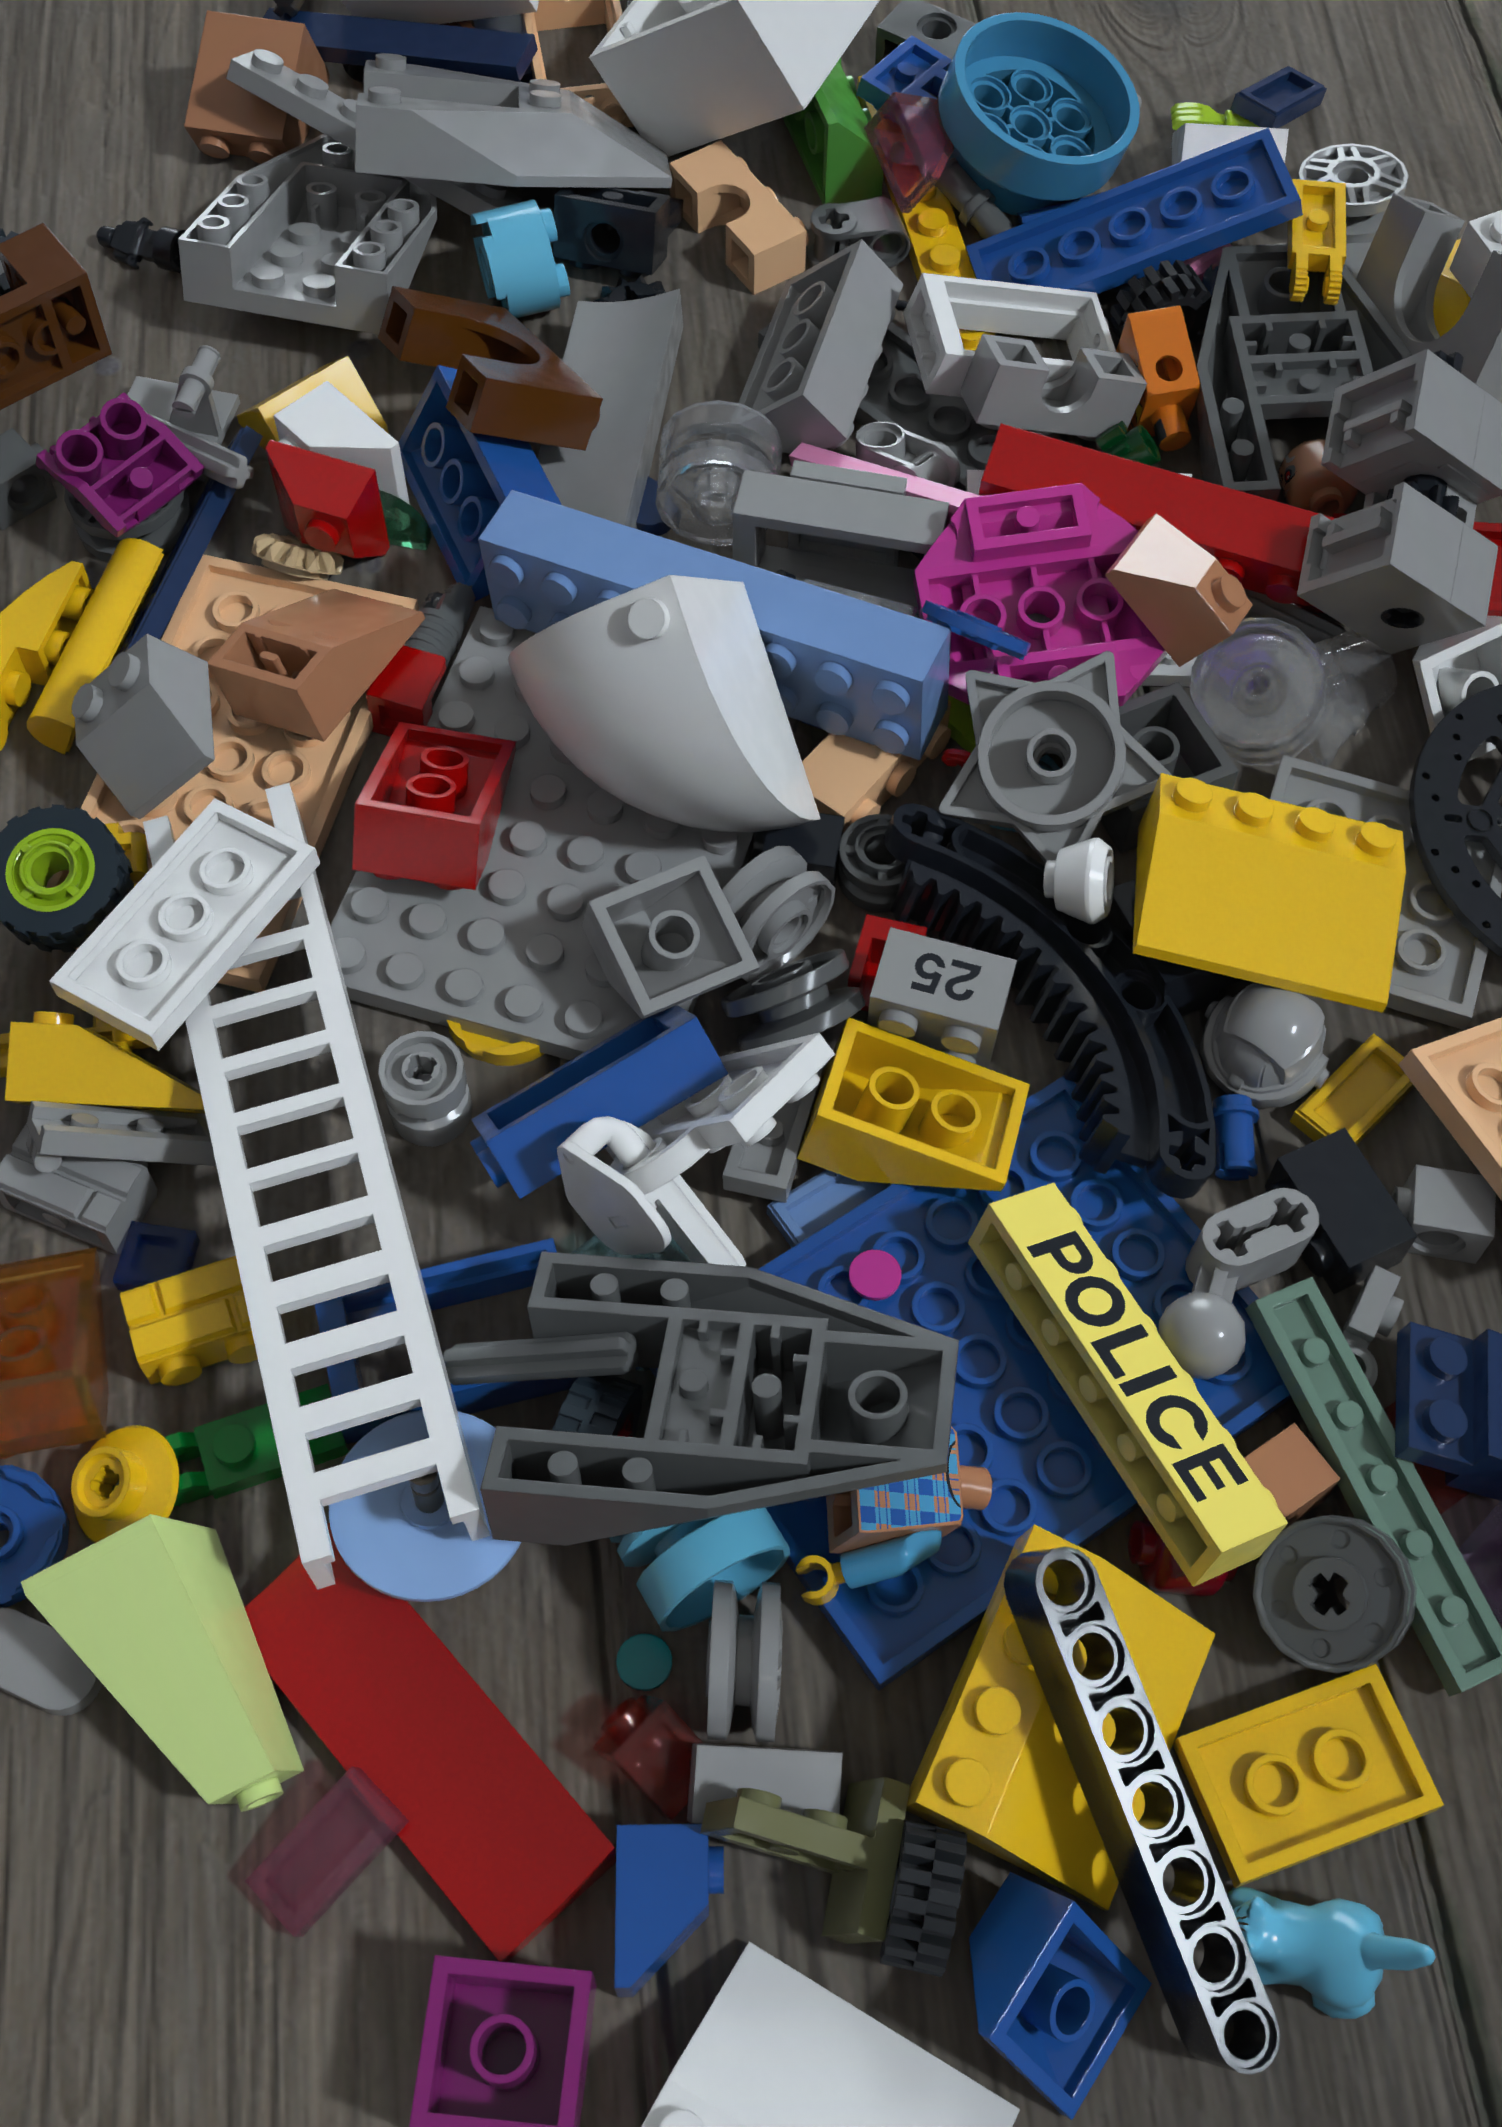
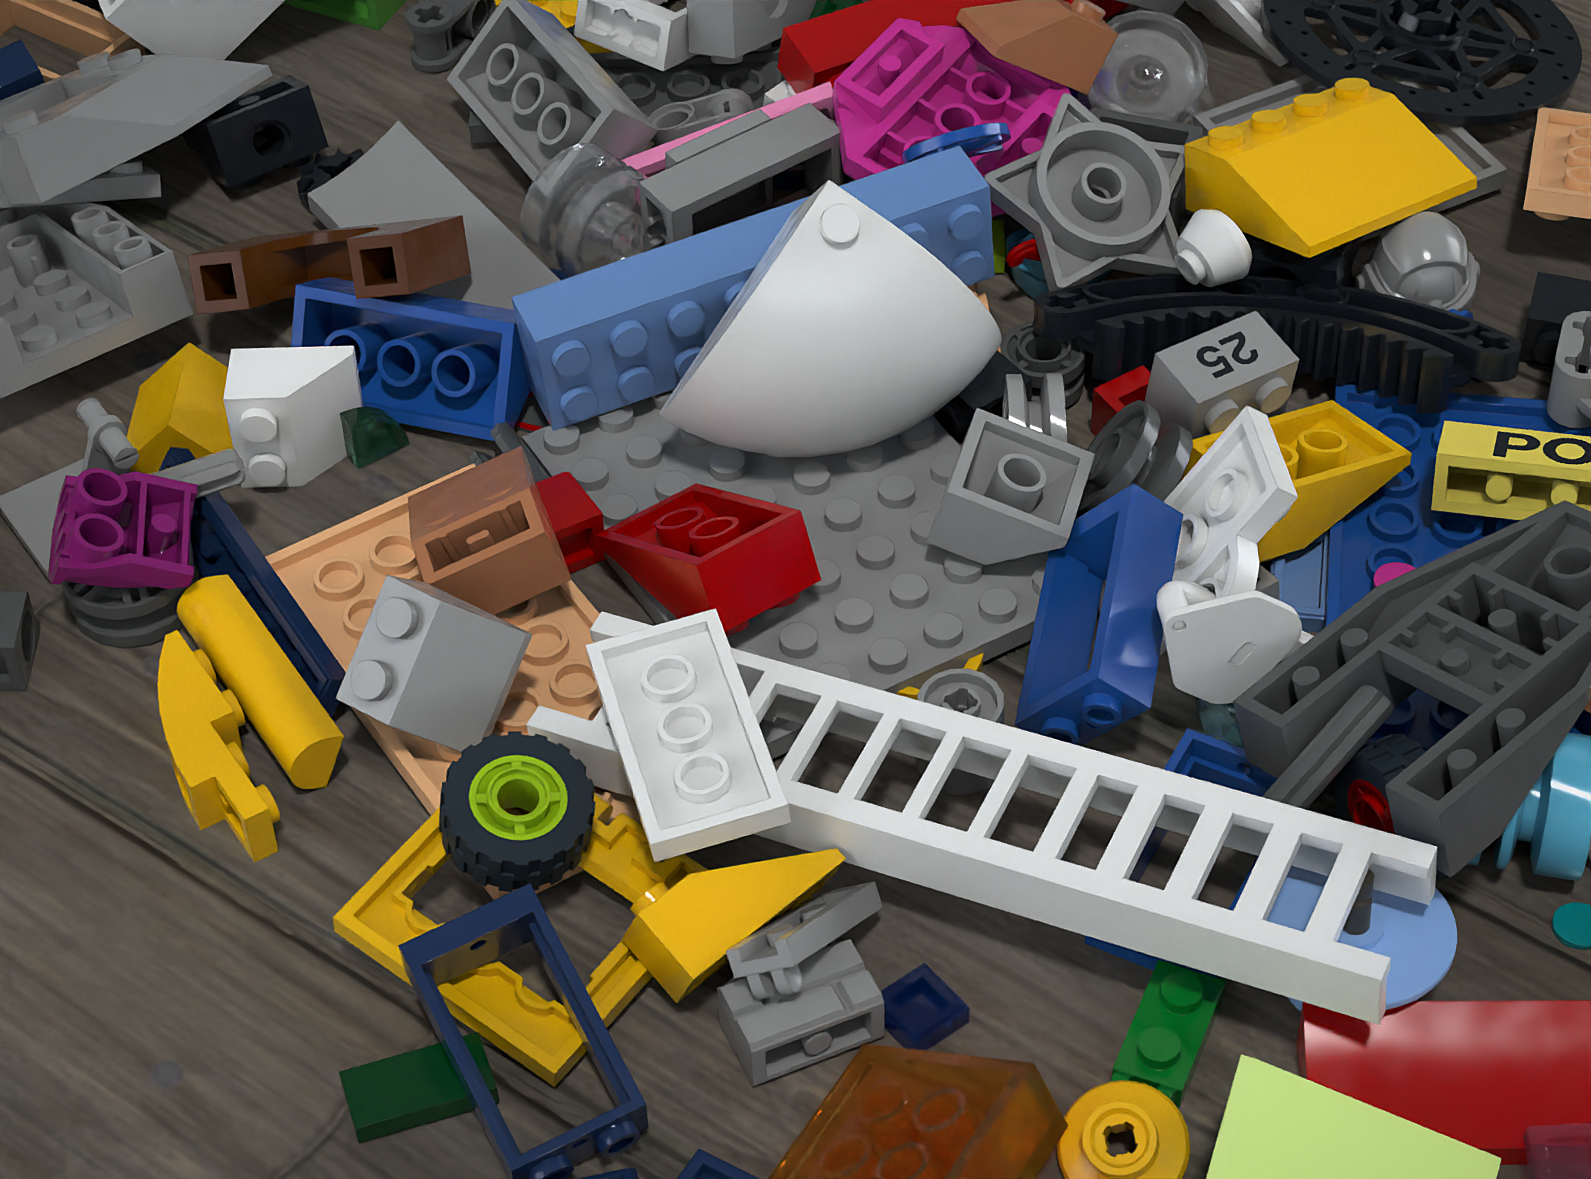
camera: 45 degrees left, 15 degrees down
(189, 1323) = (1021, 994): yellow brick -> none
(296, 558) = (335, 505): tan gear -> none
(328, 501) = (320, 441): red slope -> none
(518, 258) = (222, 193): medium azure brick -> none
(761, 235) = (379, 65): light nougat arch -> none
(1356, 1093) = (1505, 268): yellow tile -> none

